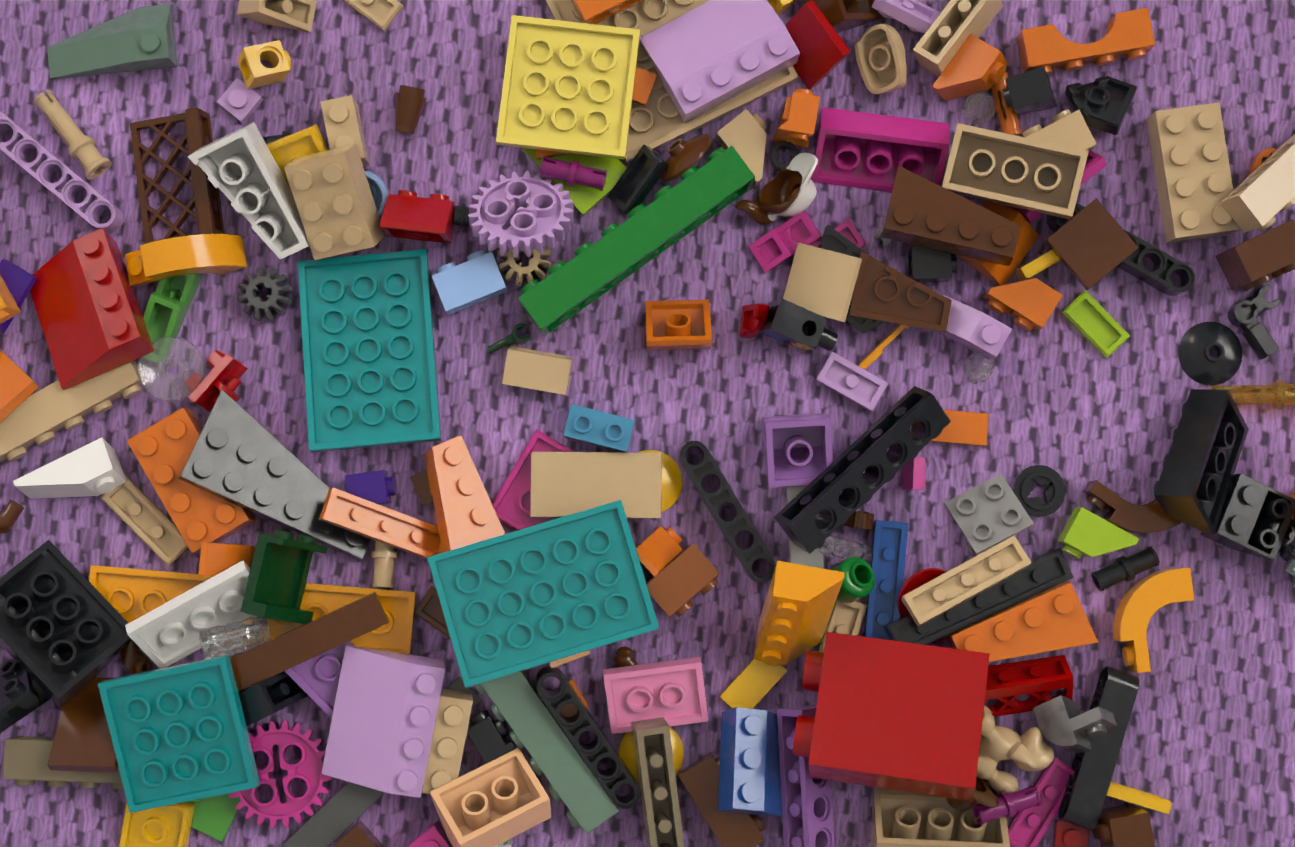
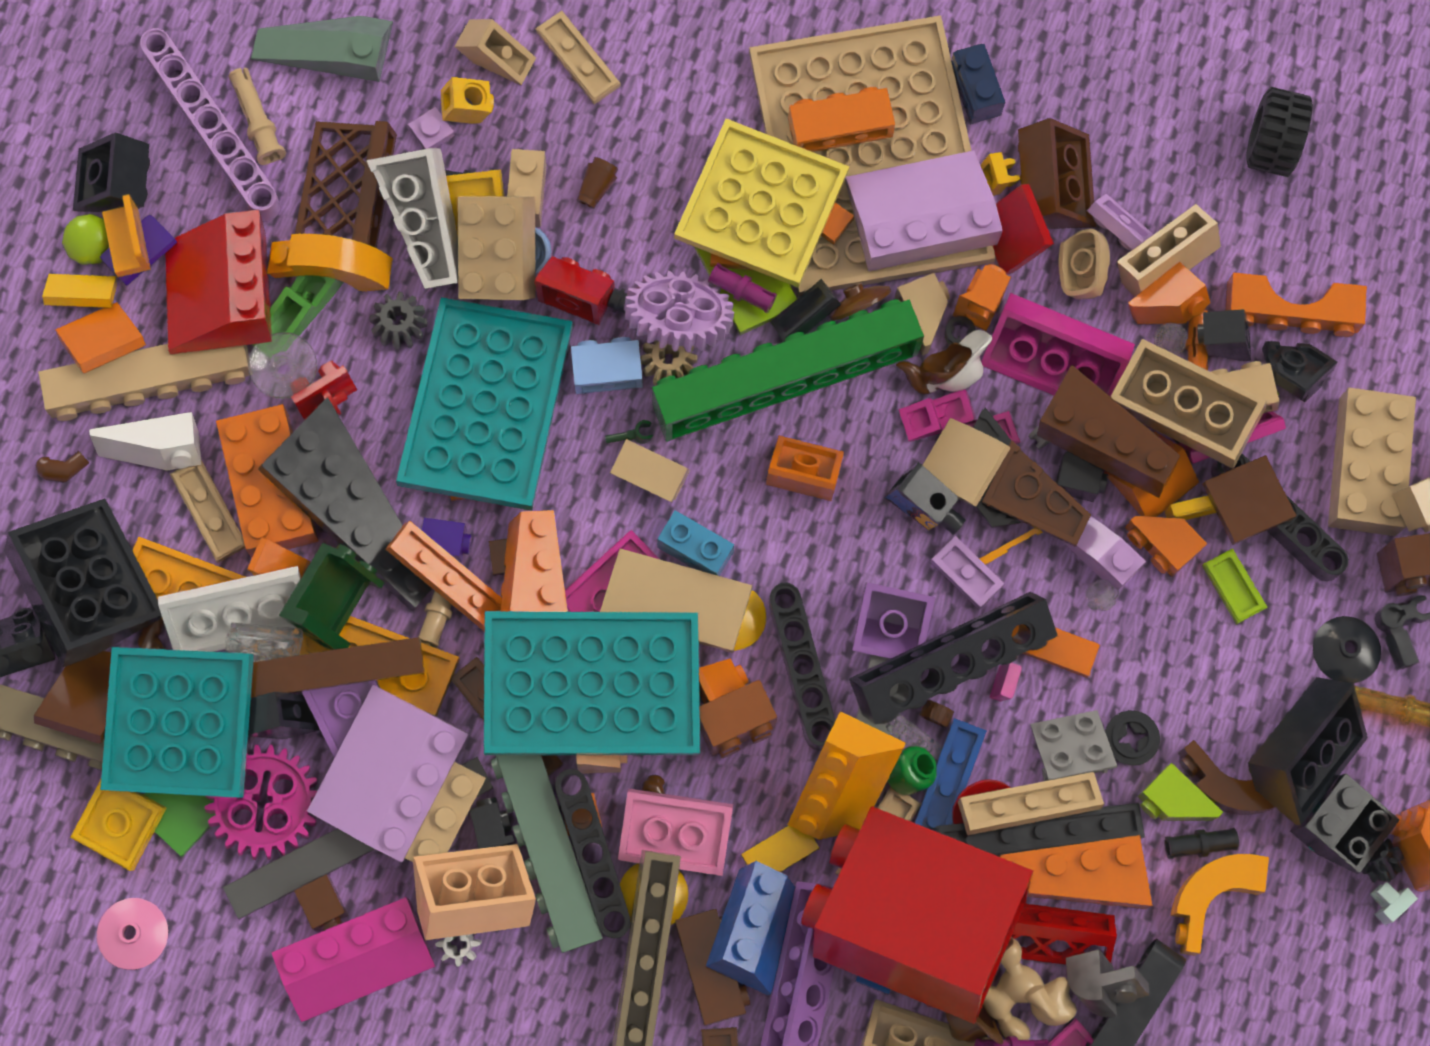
camera: 15 degrees right, 10 degrees down
(752, 319) = (883, 482): red tile -> none

